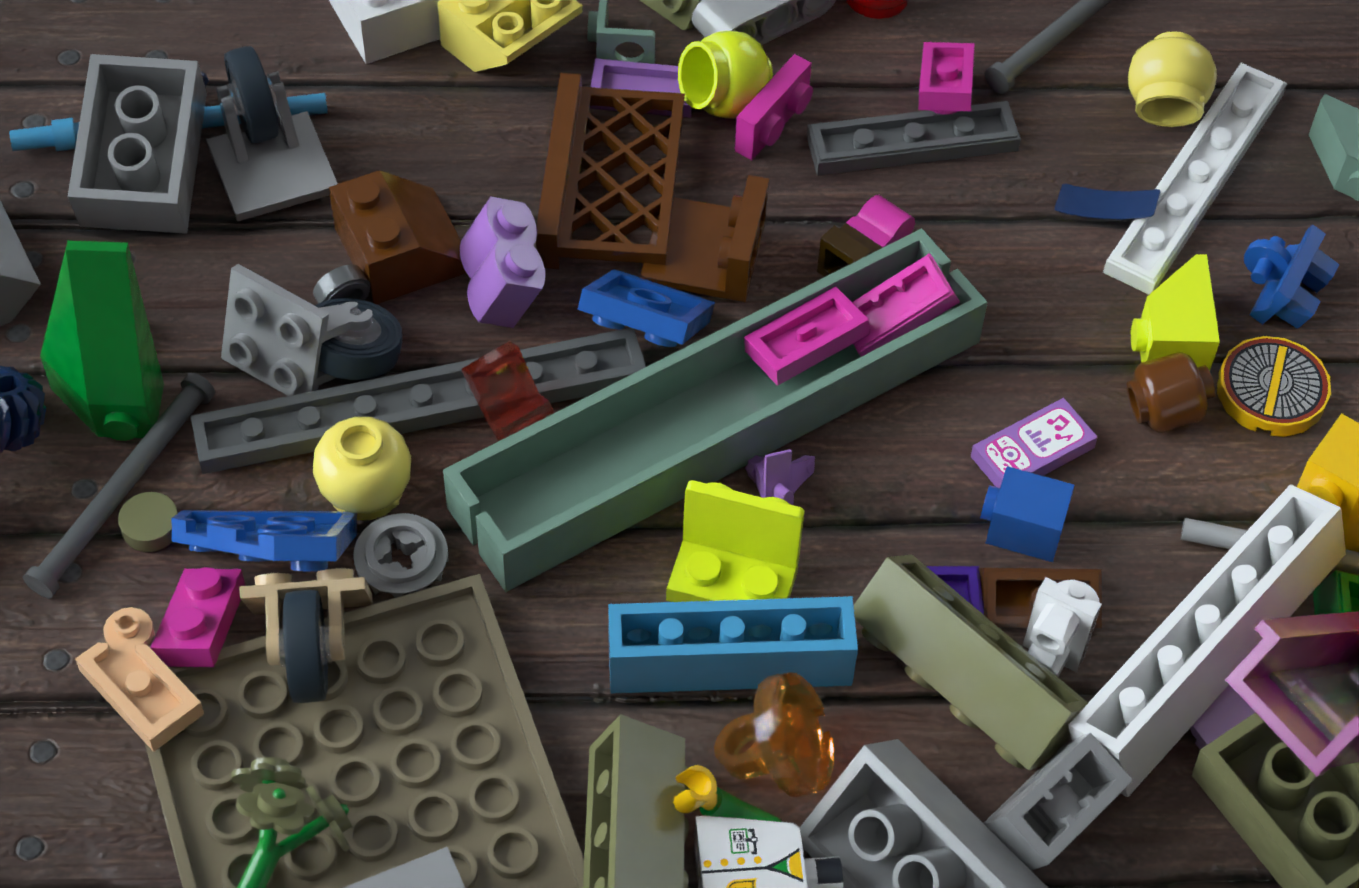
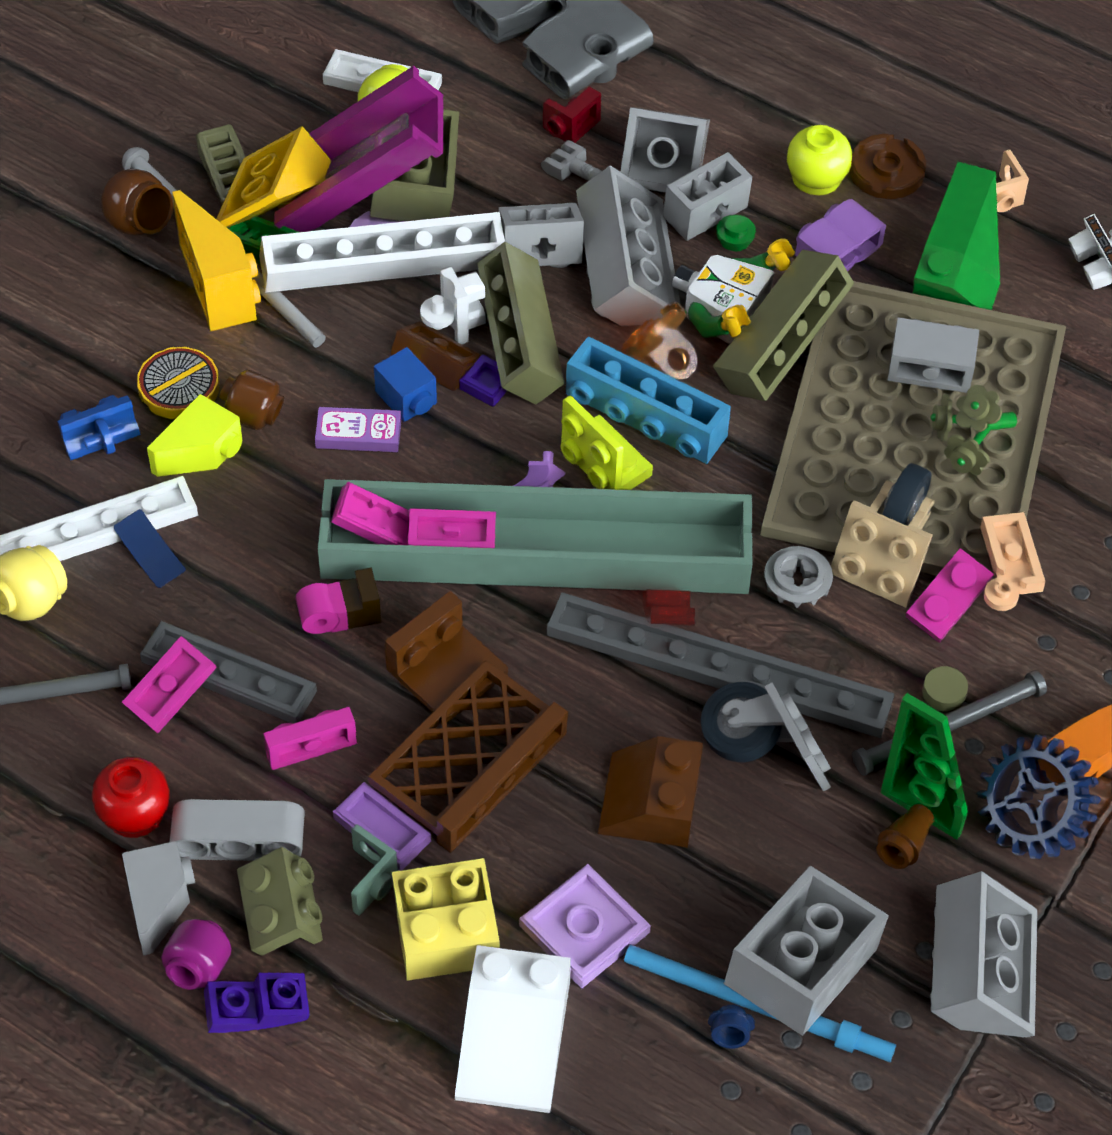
camera: 145 degrees left, 0 degrees up
(278, 155) = (703, 915): light grey plate -> none
(301, 537) = (880, 598): blue plate -> none
(342, 282) = (721, 770): dark grey tile -> none
(362, 466) = (792, 625): light yellow piece -> none
(384, 105) = (585, 923): none -> lavender tile
(502, 262) = (602, 714): medium lavender brick -> none
(657, 310) = (530, 625): blue plate -> none
(723, 73) = (328, 768): neon yellow piece -> none

